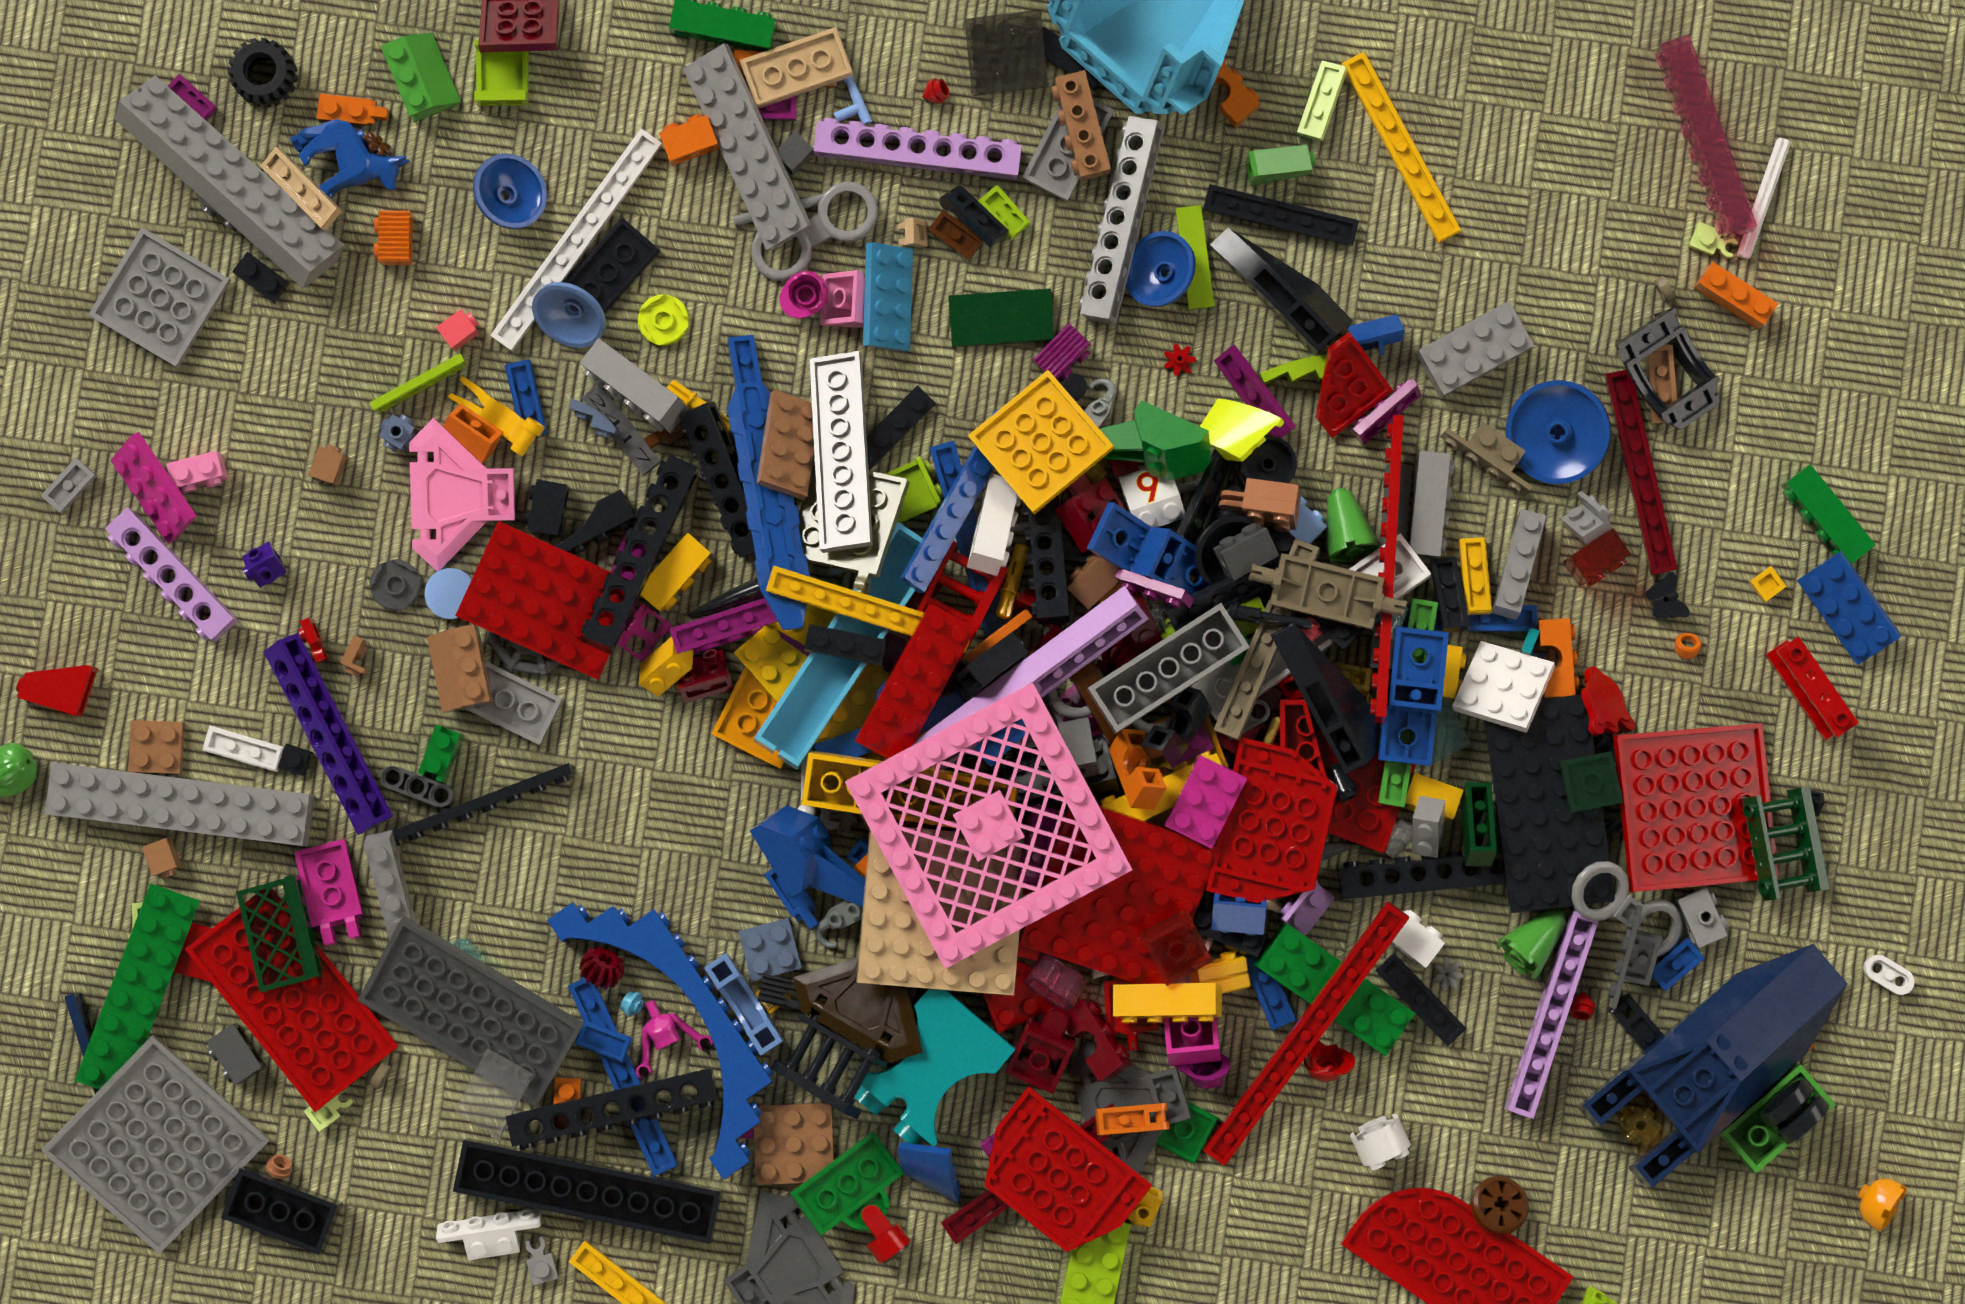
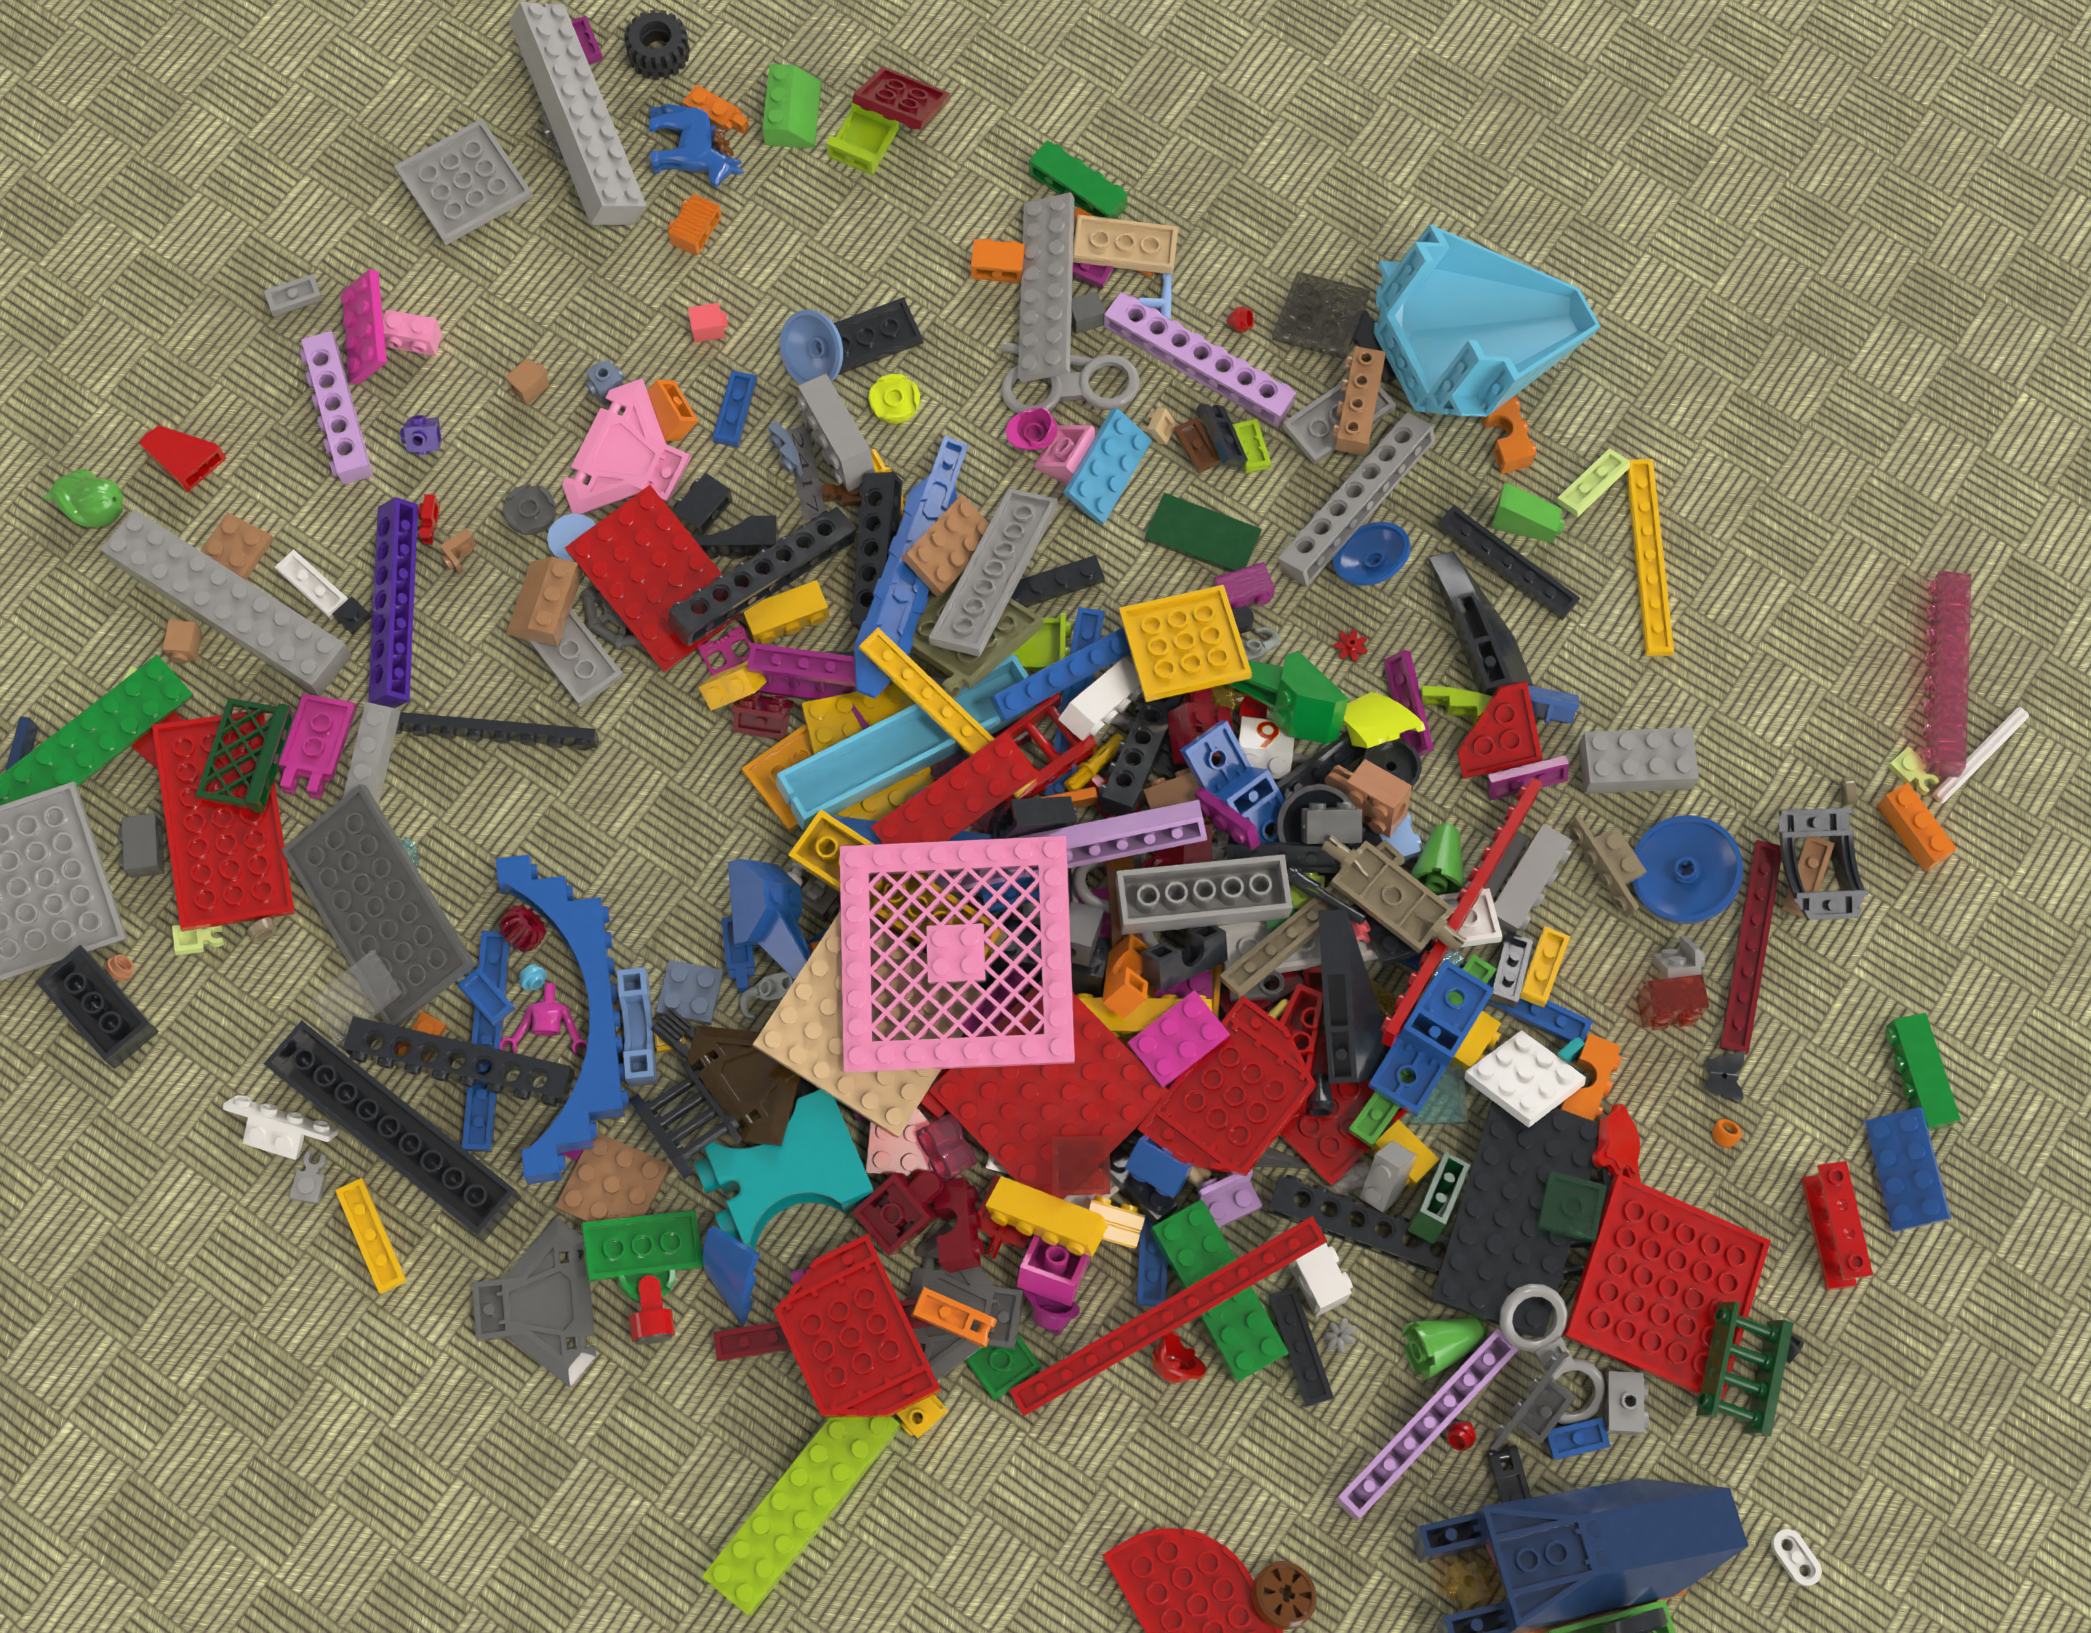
camera: 20 degrees right, 15 degrees down
(261, 277) = (560, 206): black plate -> none
(301, 188) = (636, 146): tan plate -> none
(406, 782) = (439, 680): dark grey beam -> none
(418, 383) = (647, 350): lime tile -> none
(441, 753) = (484, 669): green brick -> none
(514, 428) = (710, 424): yellow flag -> none
(518, 182) = (823, 221): blue dish -> none
(579, 235) = (861, 293): white plate -> none
(845, 645) = (907, 733): black plate -> none
(1191, 228) = (1405, 580): lime tile -> none
(1381, 1141) = (1193, 1466): white brick -> none
(1518, 564) = (1592, 972): light grey brick -> none
(1767, 584) = (1833, 1110): yellow plate -> none

